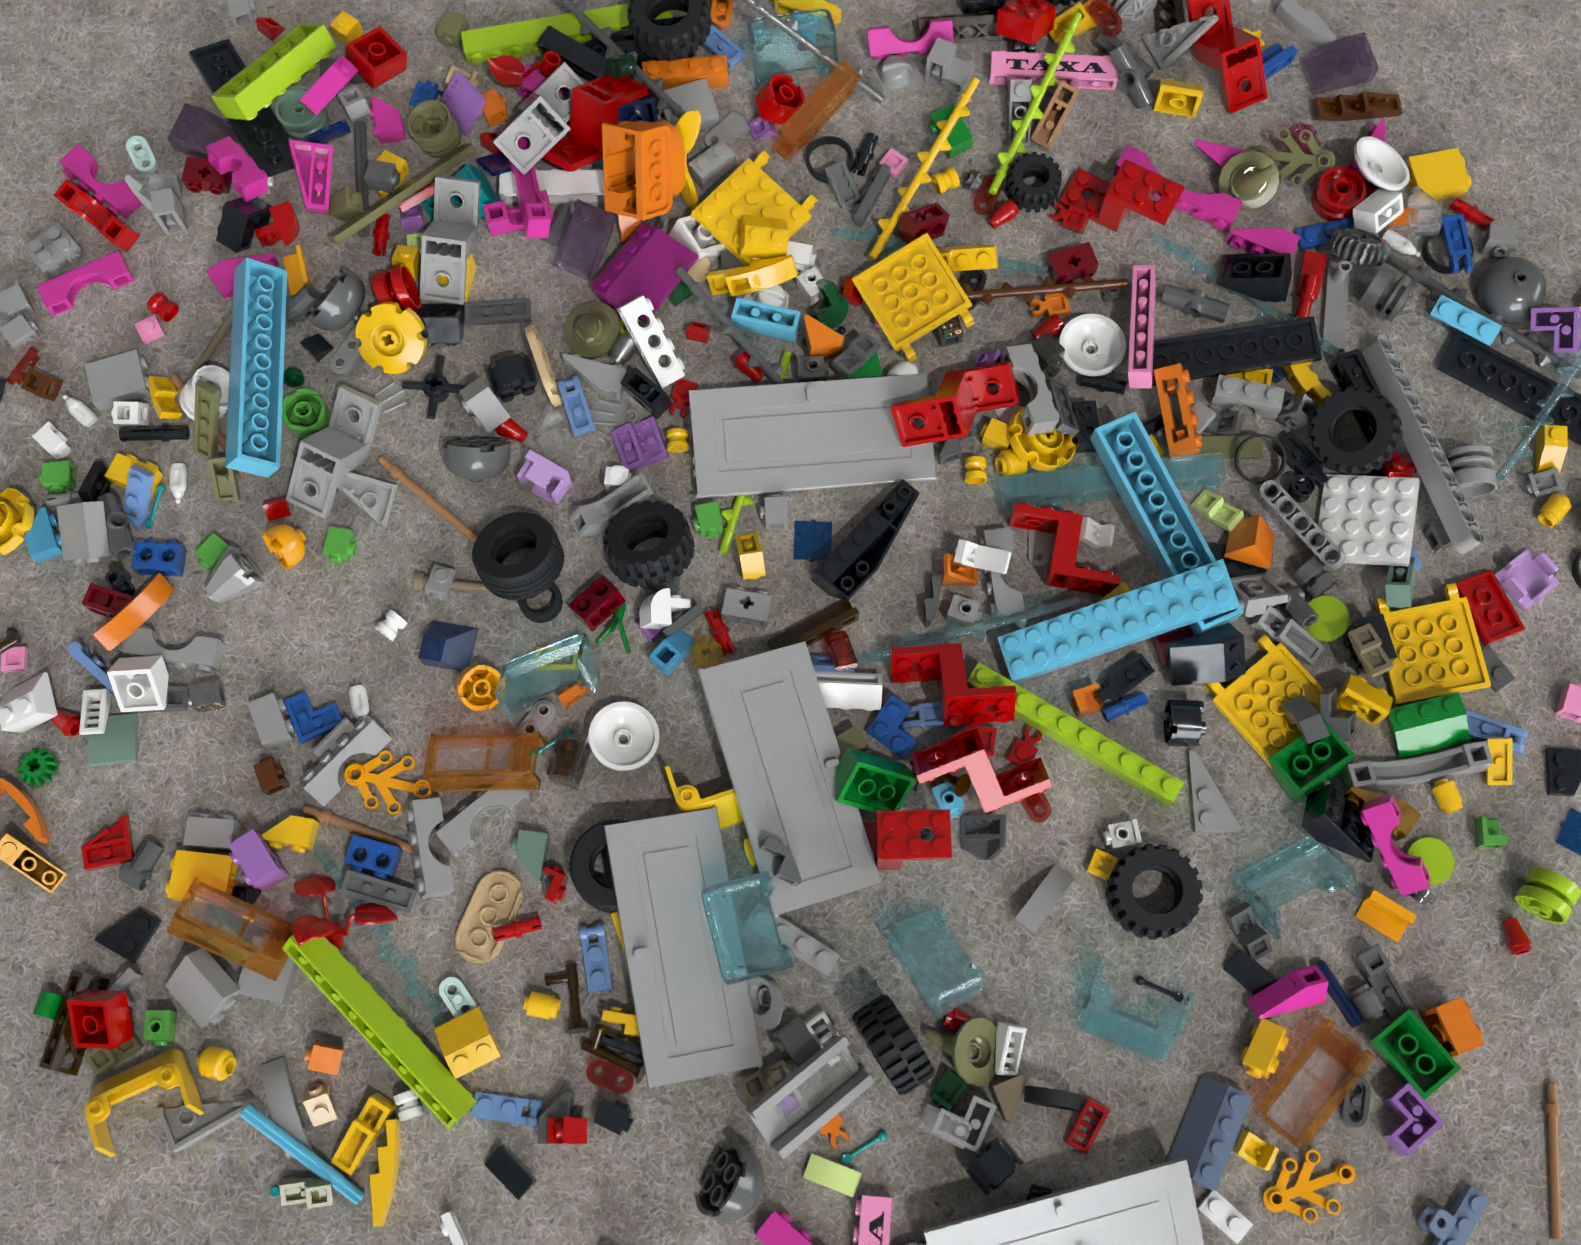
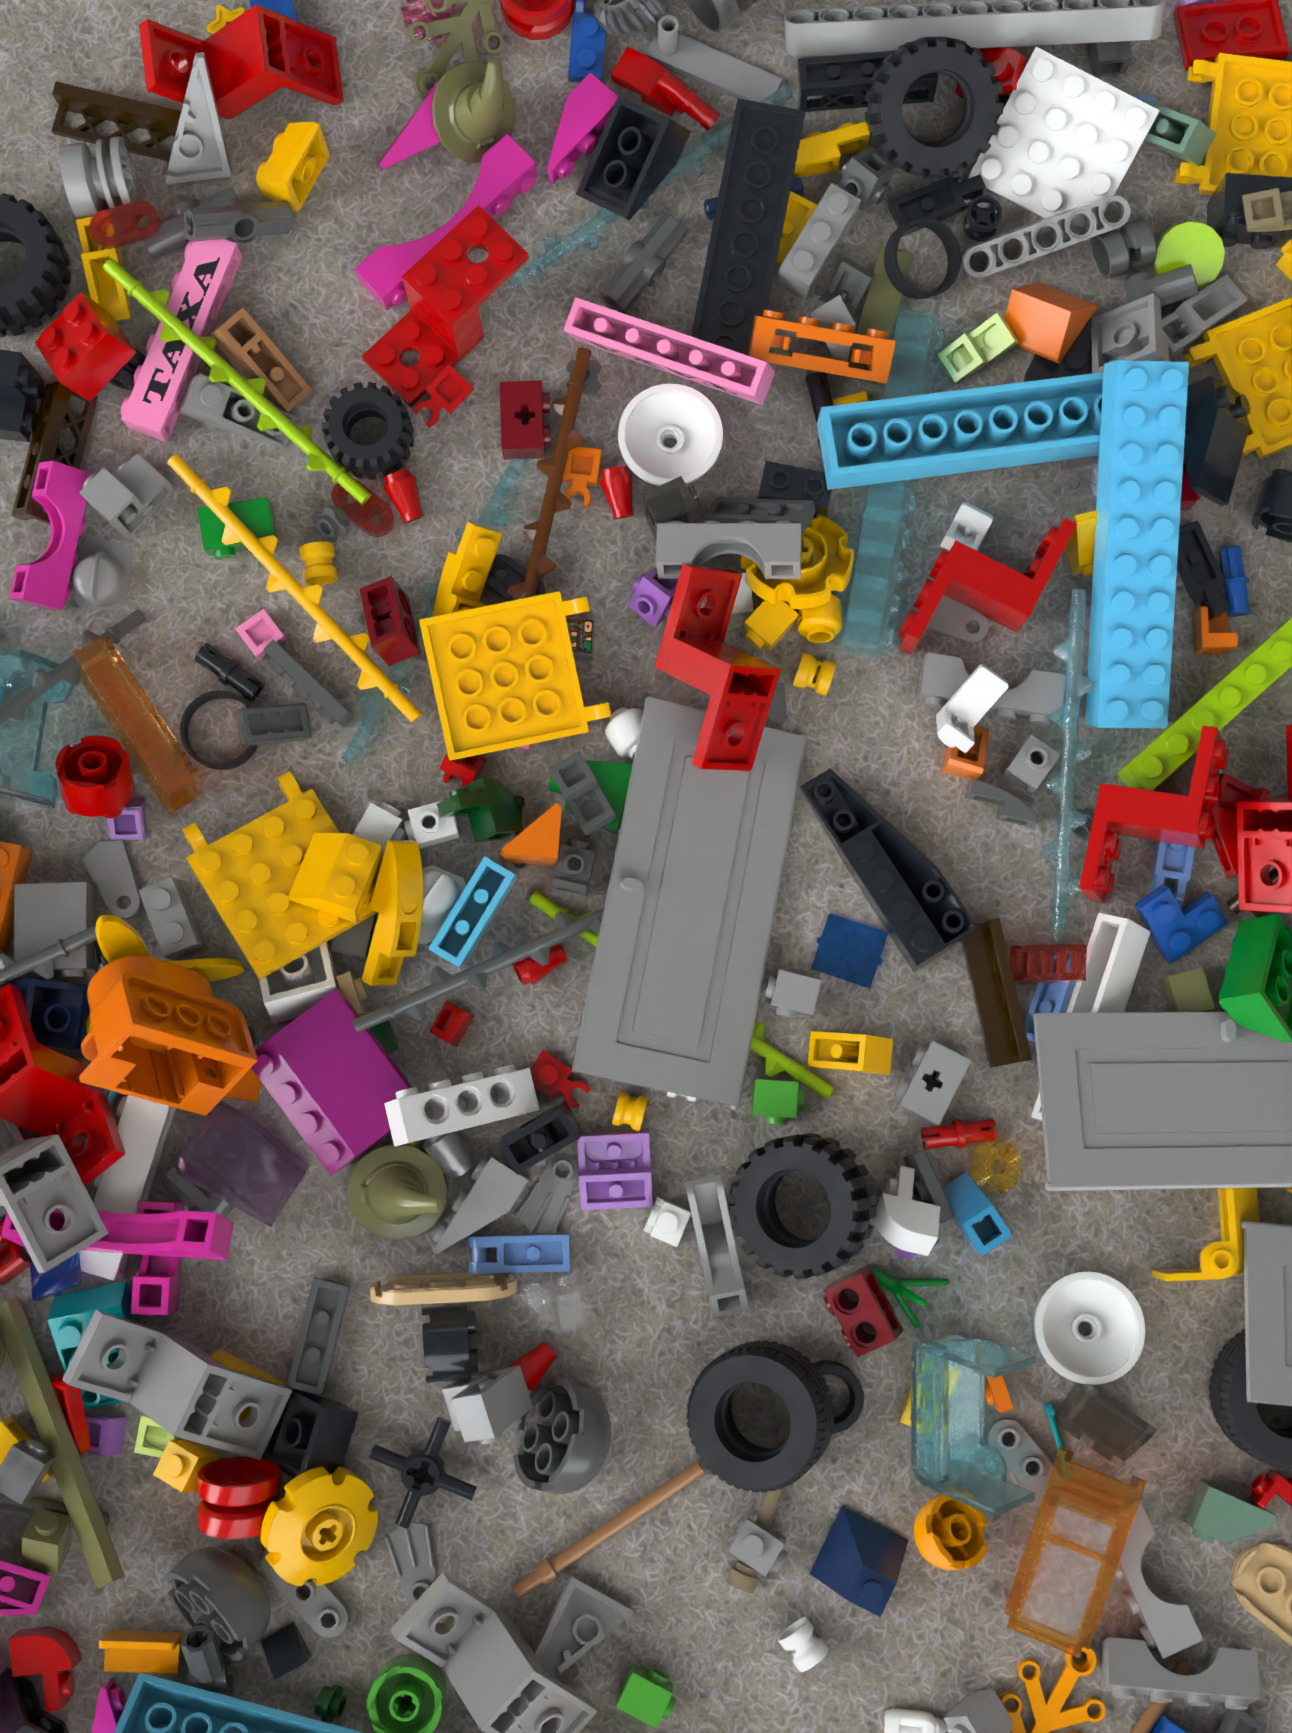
camera: 75 degrees left, 10 degrees up
(381, 235) = (120, 1495): red pin -> none
(549, 479) = (637, 1338): lavender panel -> none
(1024, 750) = (1261, 746): red plate -> none
(1103, 384) = (733, 438): black pin -> none

